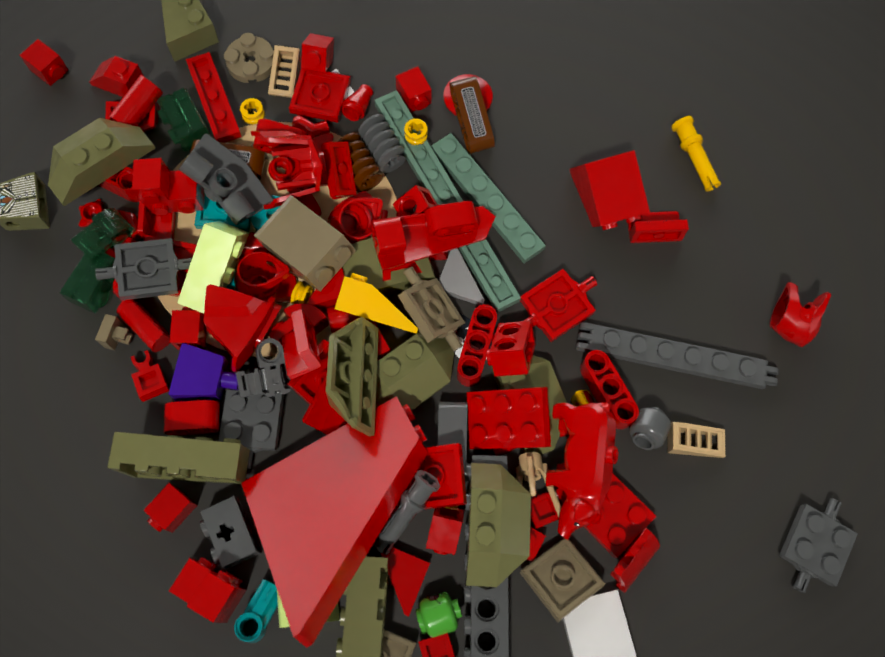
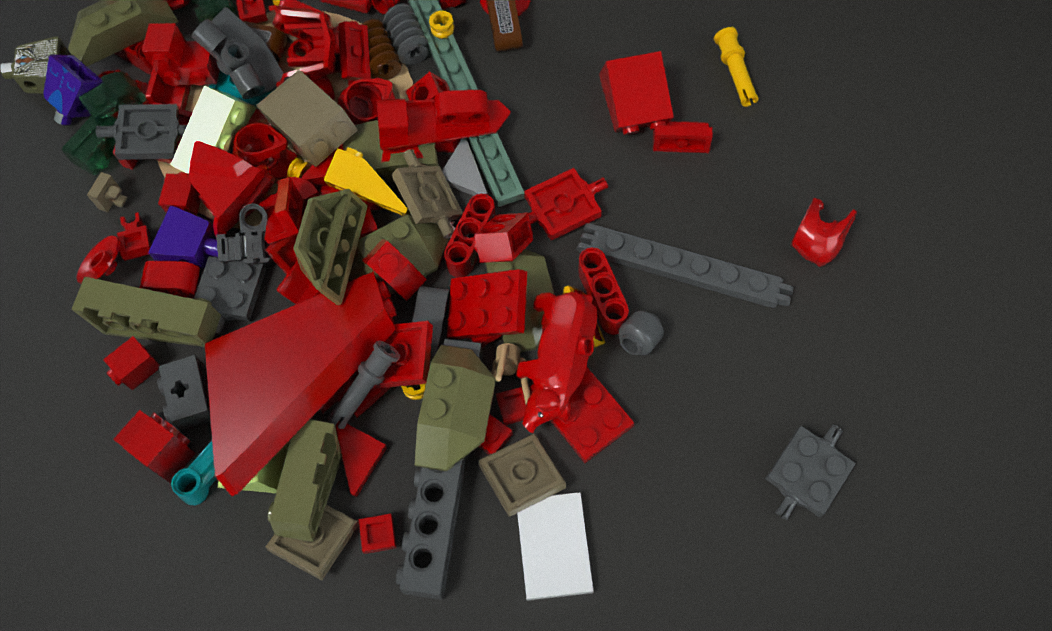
camera: 15 degrees right, 5 degrees down
(55, 225) = (64, 83): none -> dark purple torso
(117, 405) = (100, 259): none -> red dish
(143, 324) = (138, 187): red brick -> none
(311, 129) = (337, 16): red arm -> none
(413, 389) = (394, 269): none -> red slope
(438, 614) = (385, 495): bright green head -> none
(445, 530) = (403, 411): red brick -> none
(484, 193) = (503, 87): sand green plate -> none
(635, 559) = (601, 463): red slope -> none
(675, 446) = (694, 341): tan slope -> none

